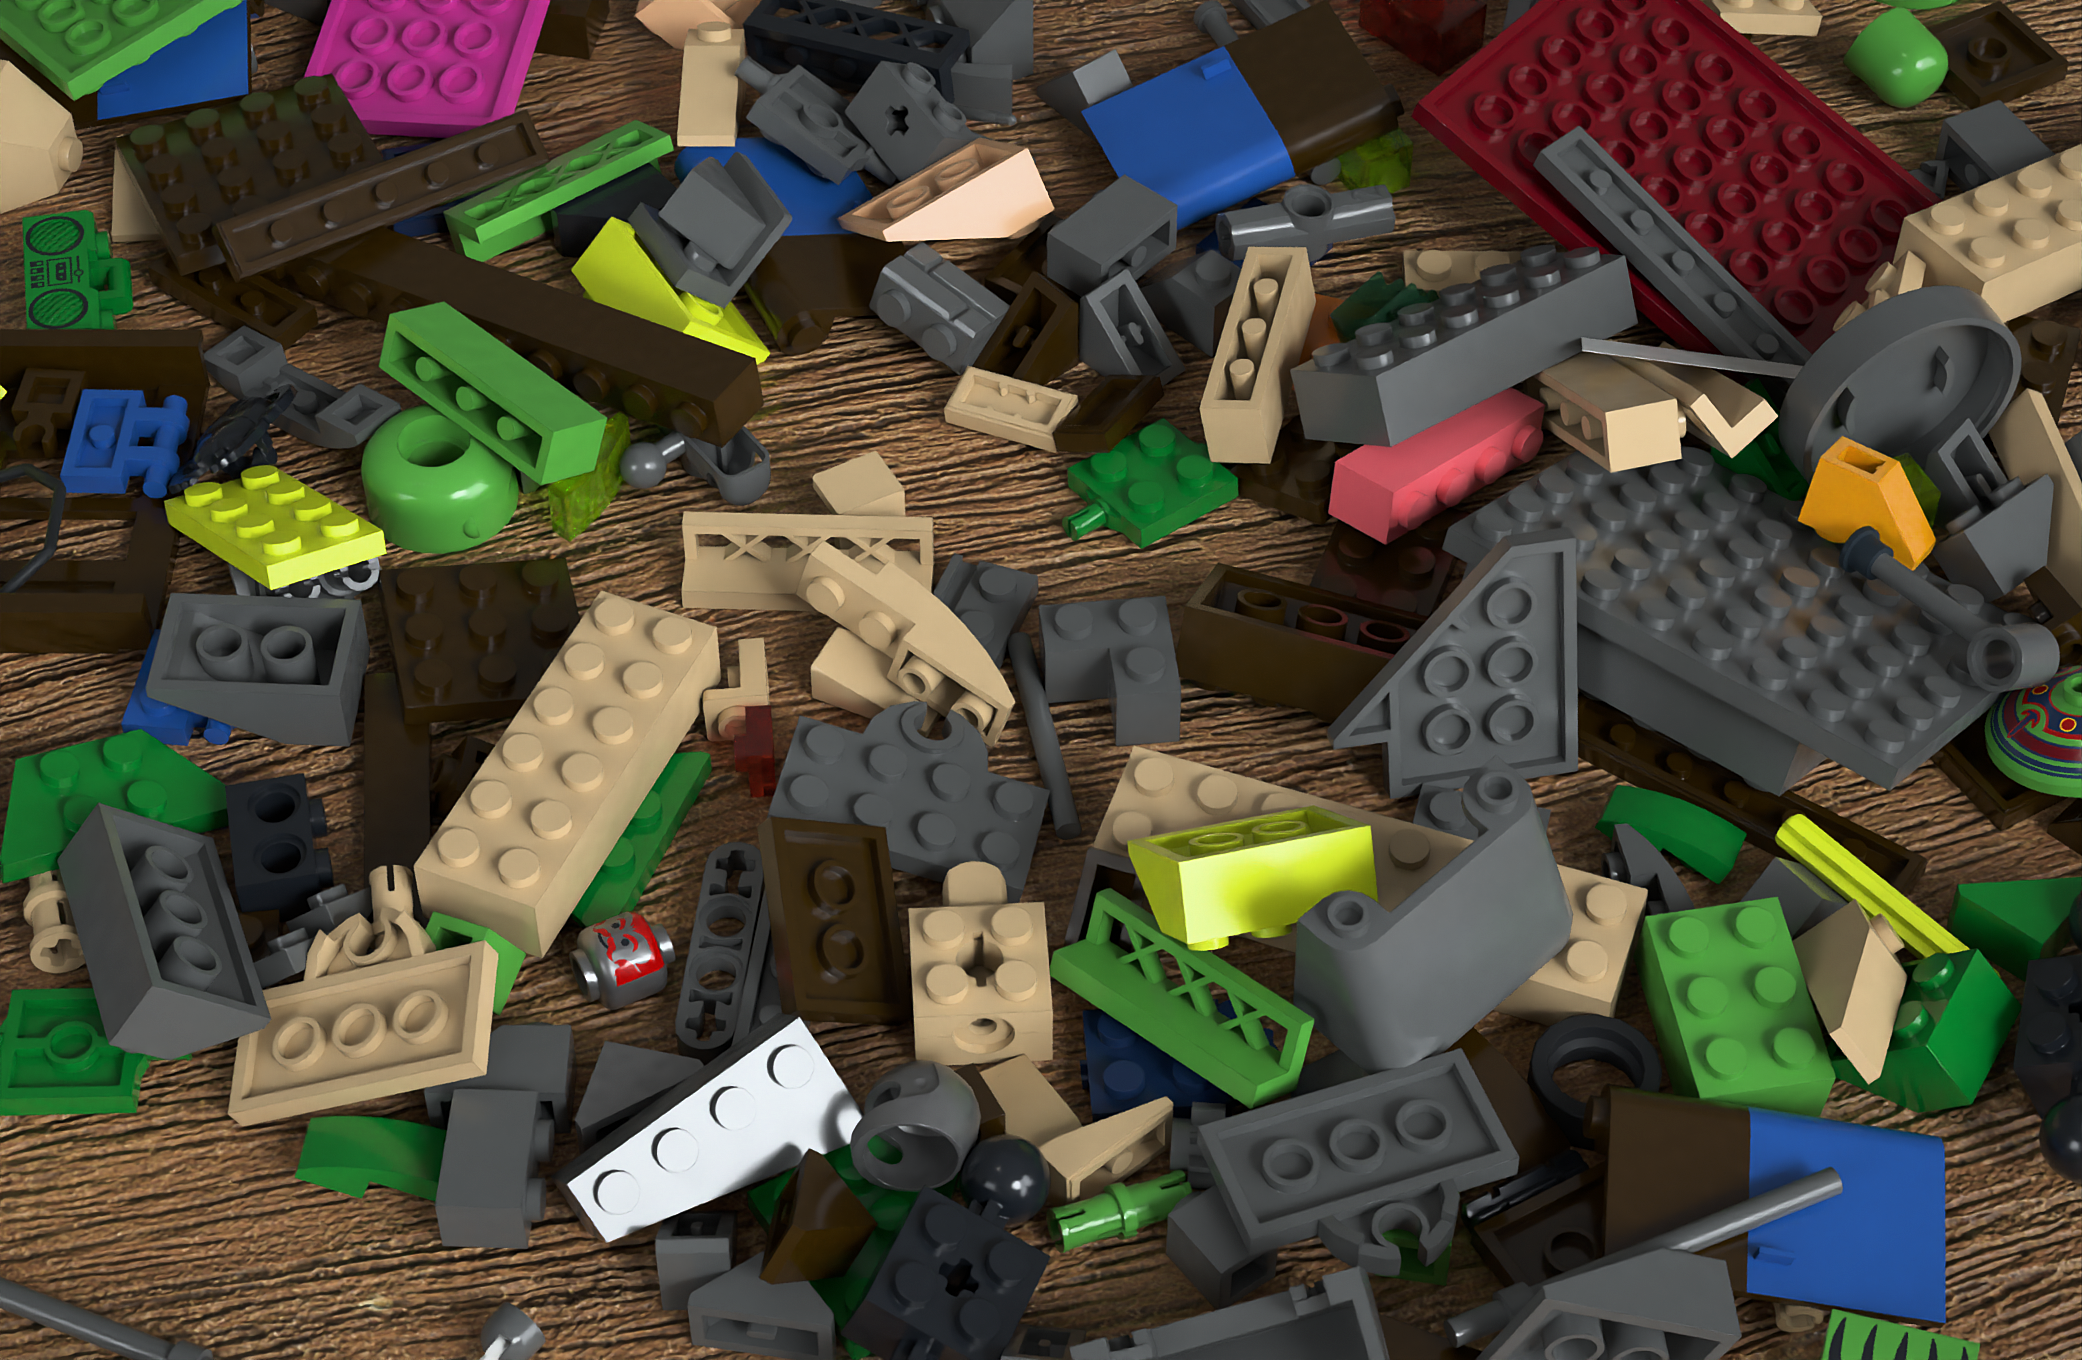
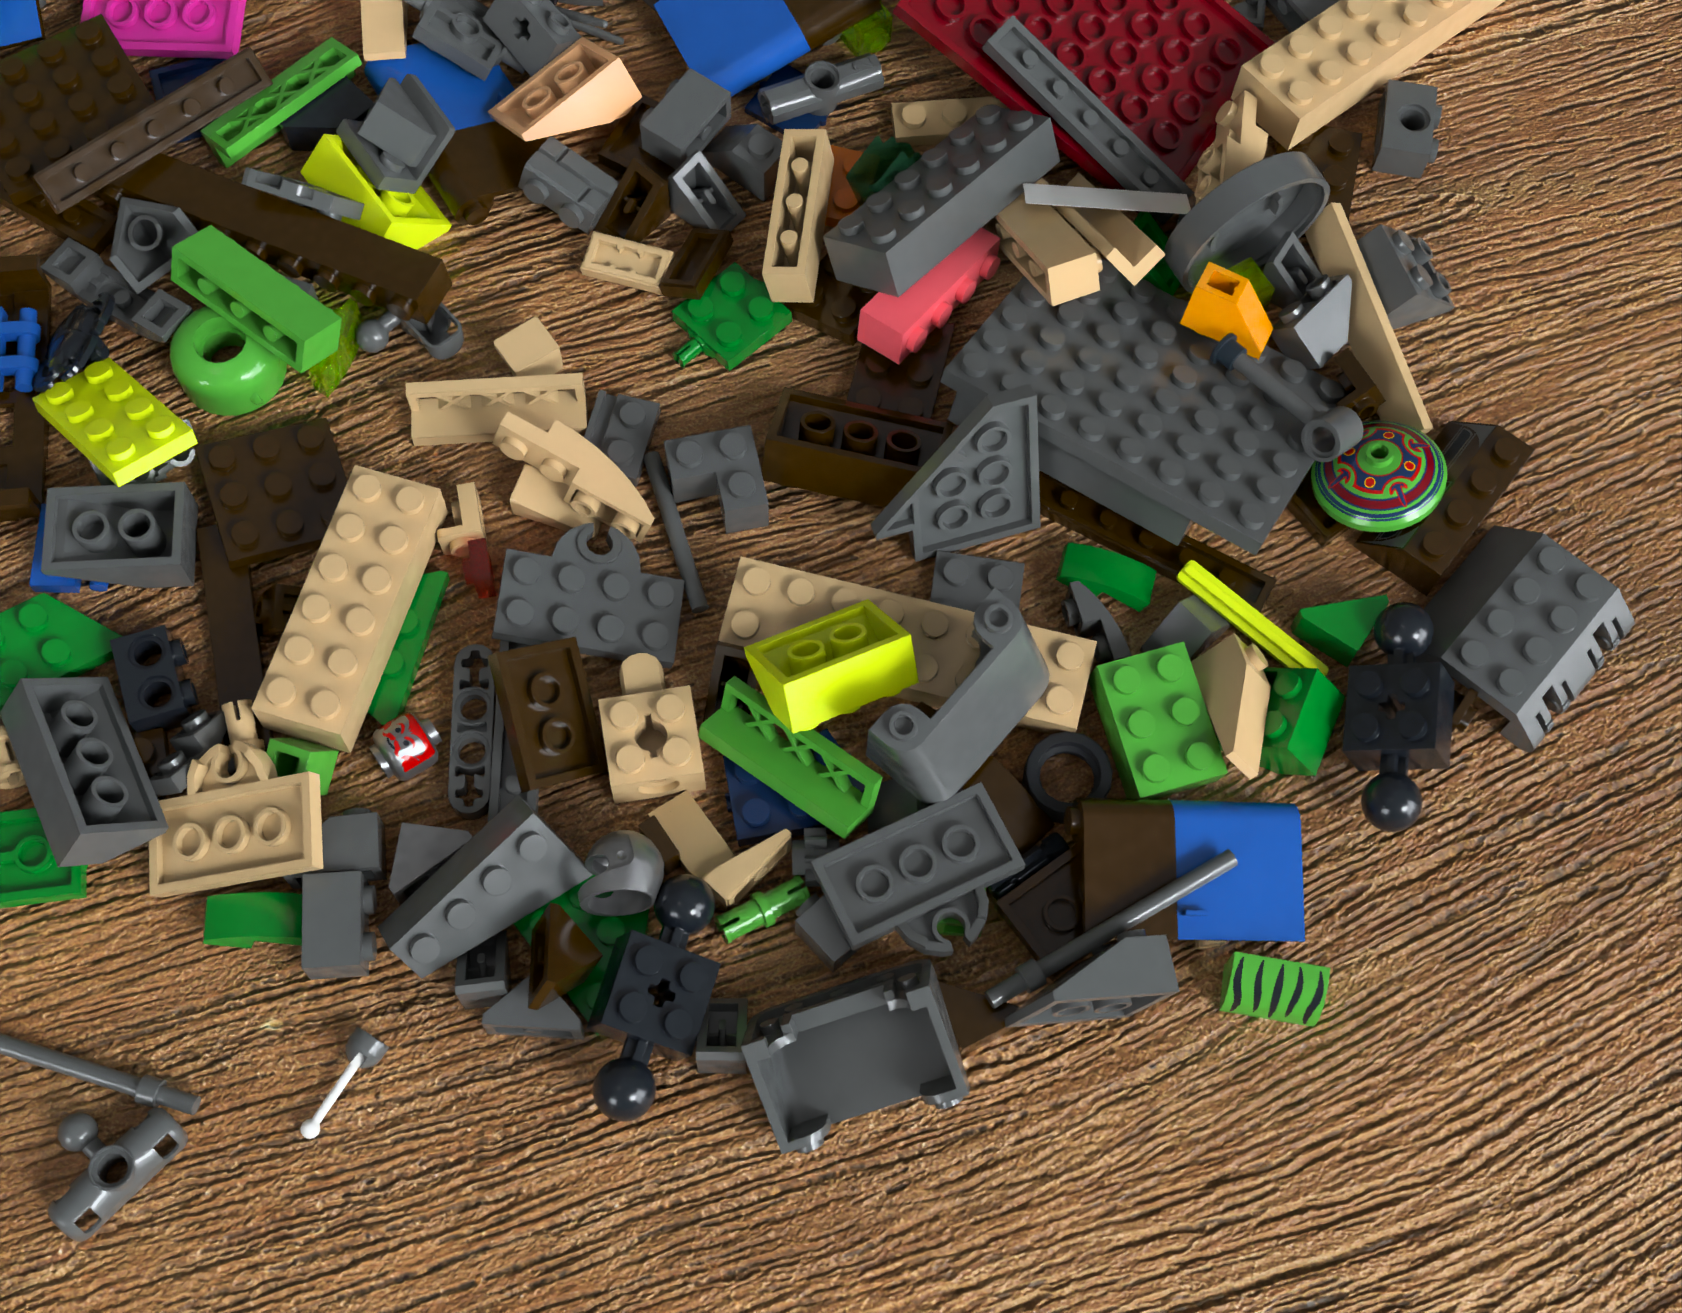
camera: 10 degrees left, 20 degrees up
(349, 329) = (145, 240): none -> dark grey slope
(574, 278) = (304, 194): none -> dark grey wing

